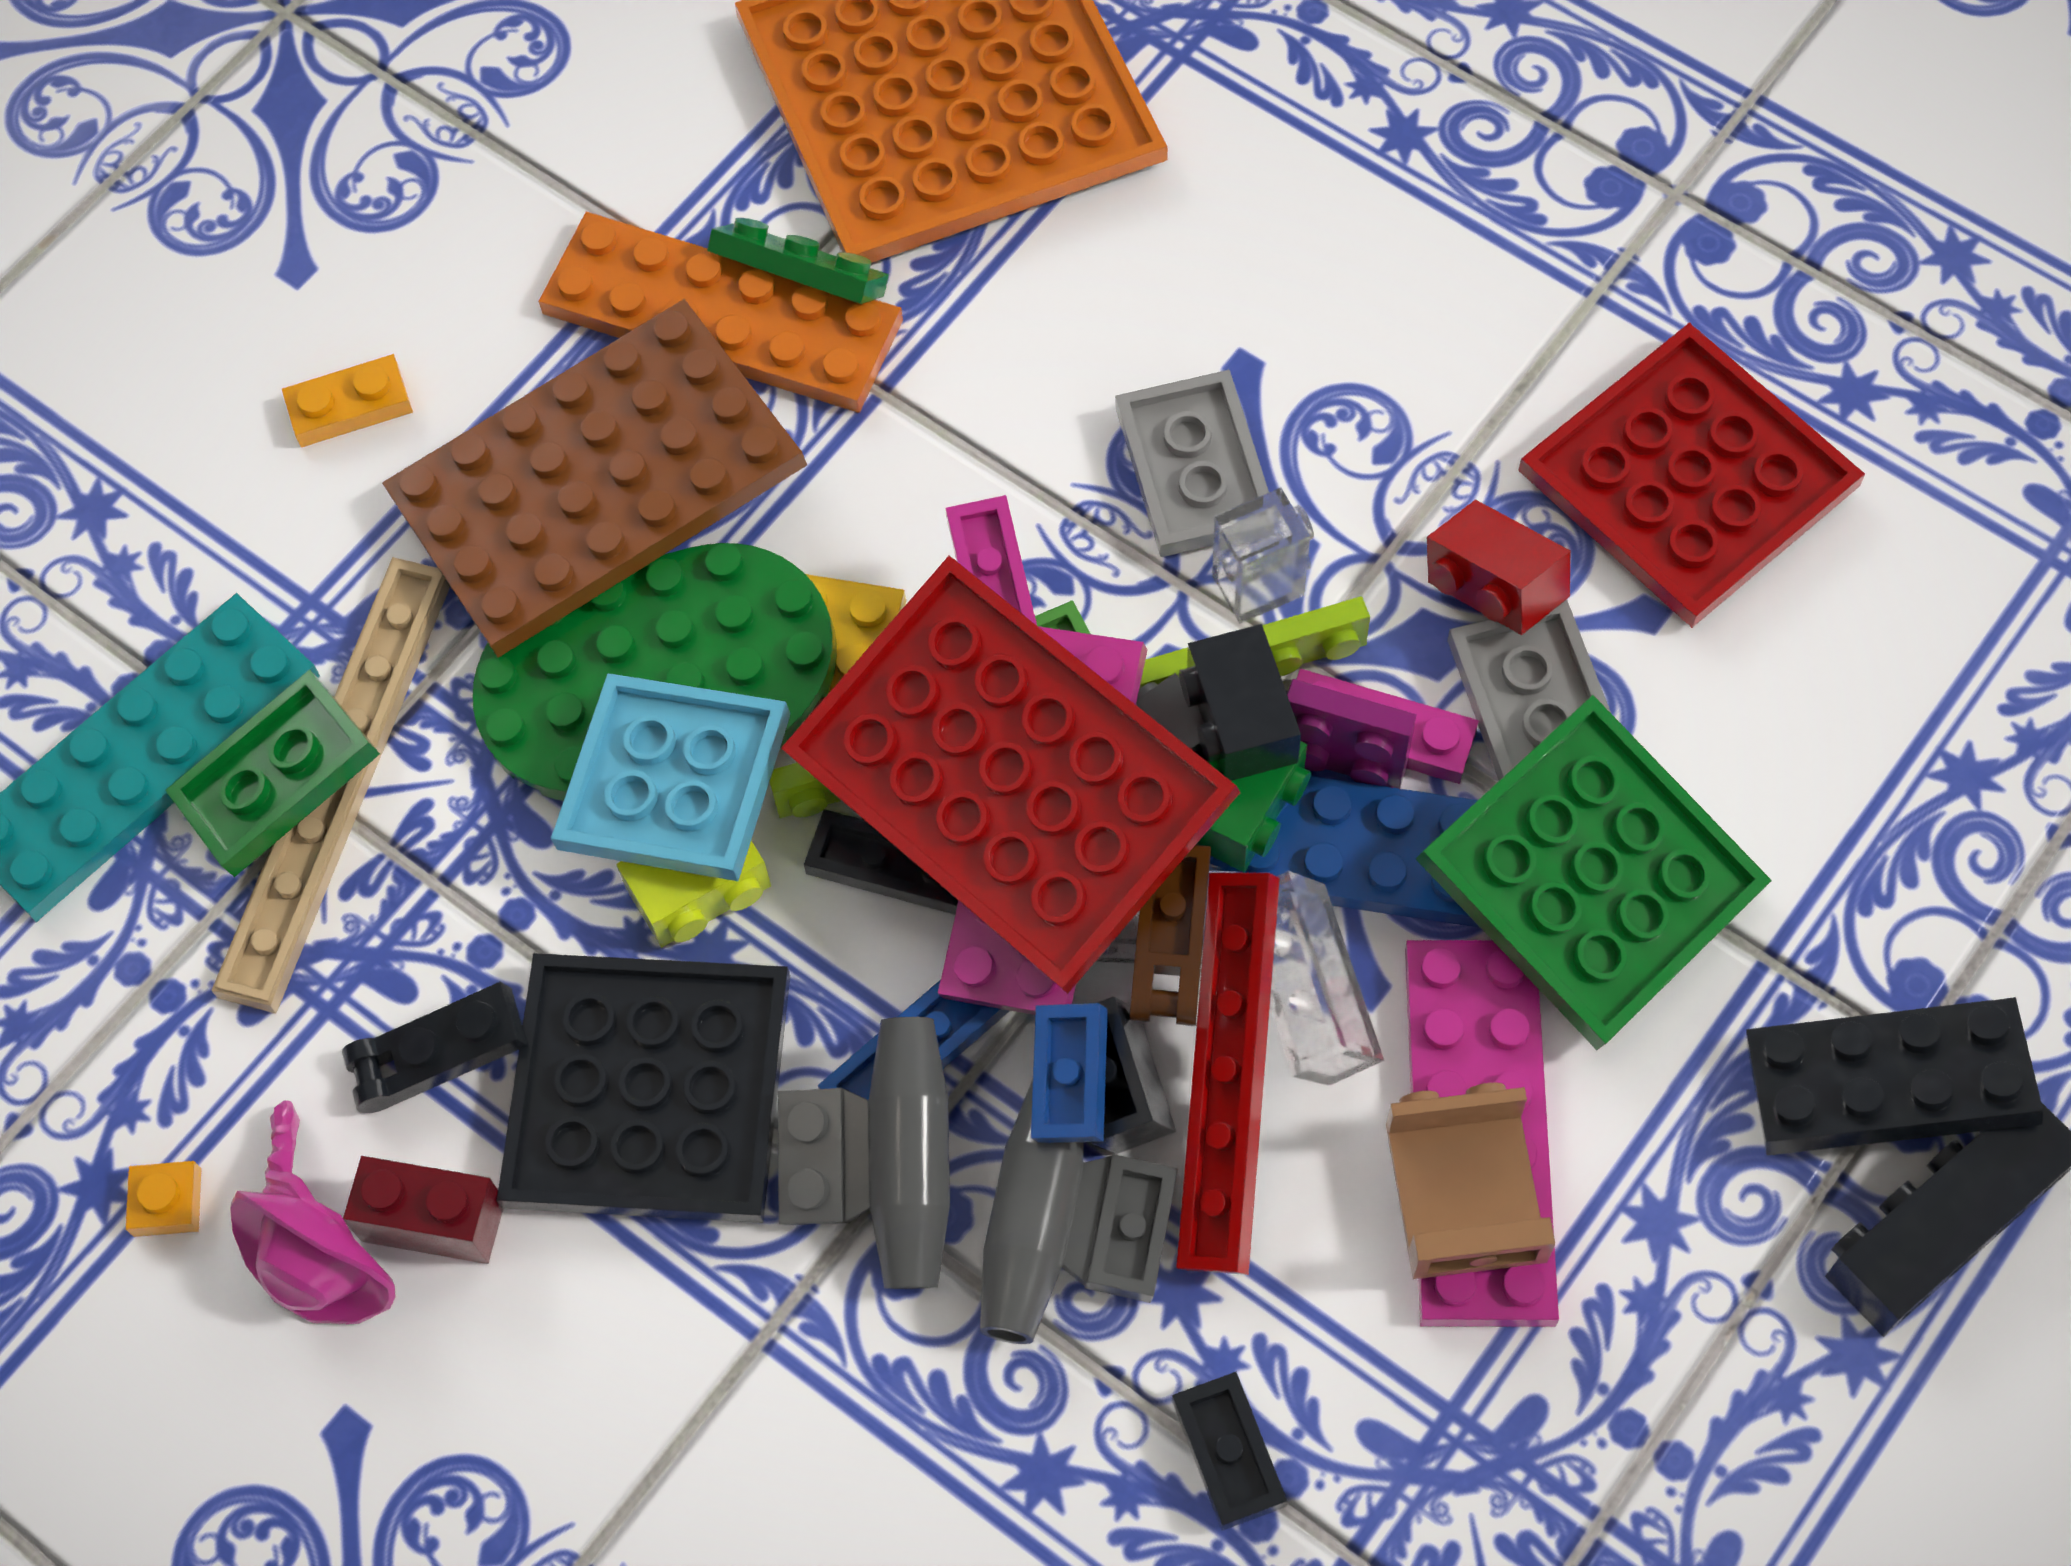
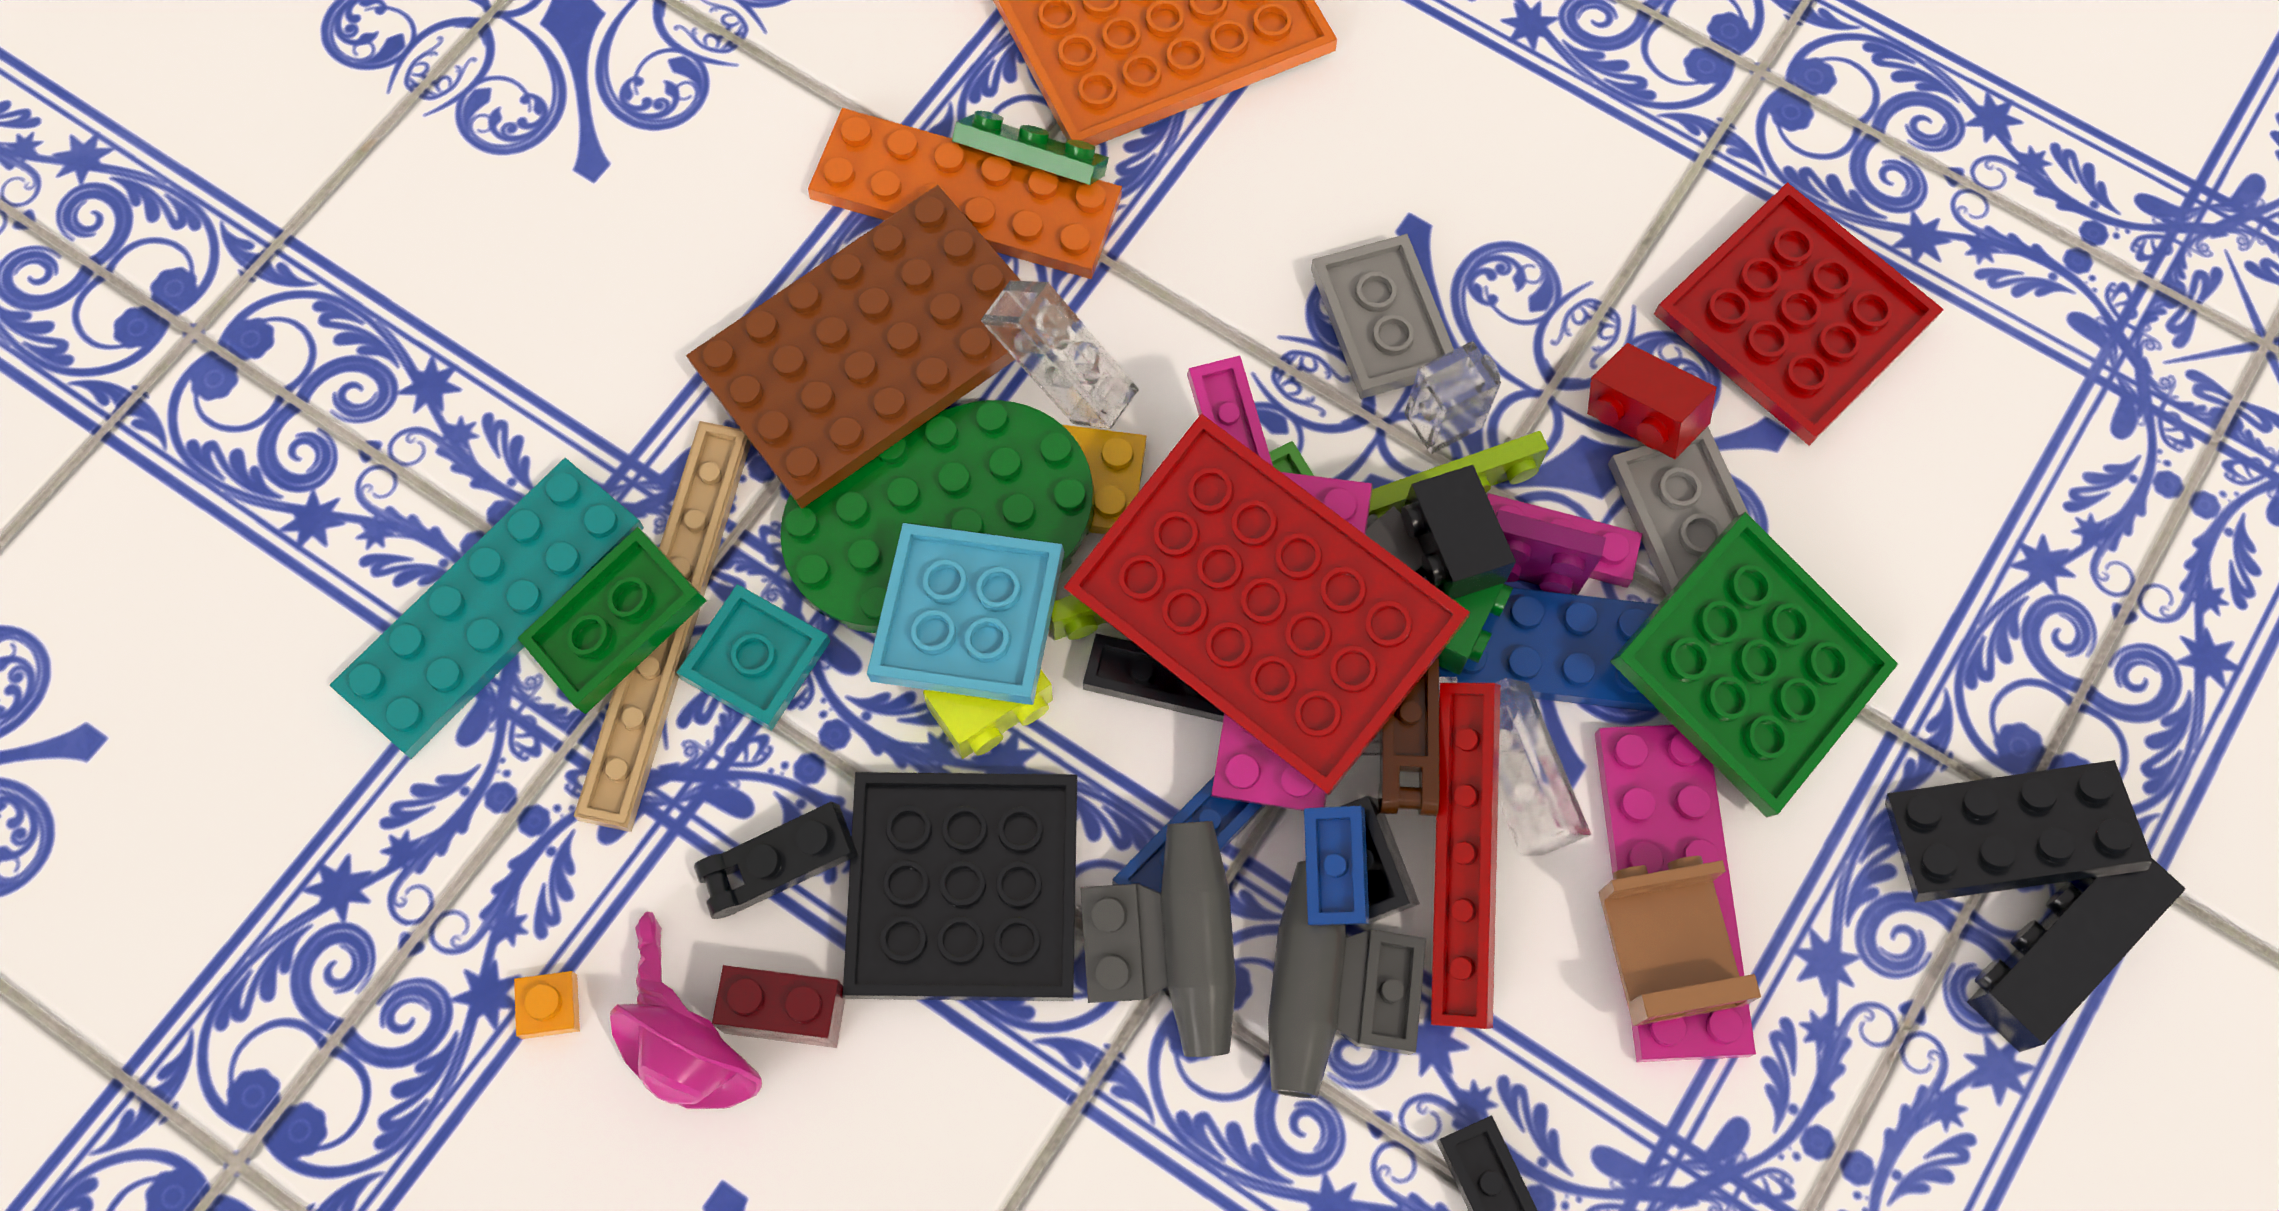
camera: 10 degrees left, 5 degrees up
(347, 400) = (646, 281): light orange plate -> none
(430, 822) = (754, 657): none -> teal plate
(804, 490) = (1060, 353): none -> clear brick

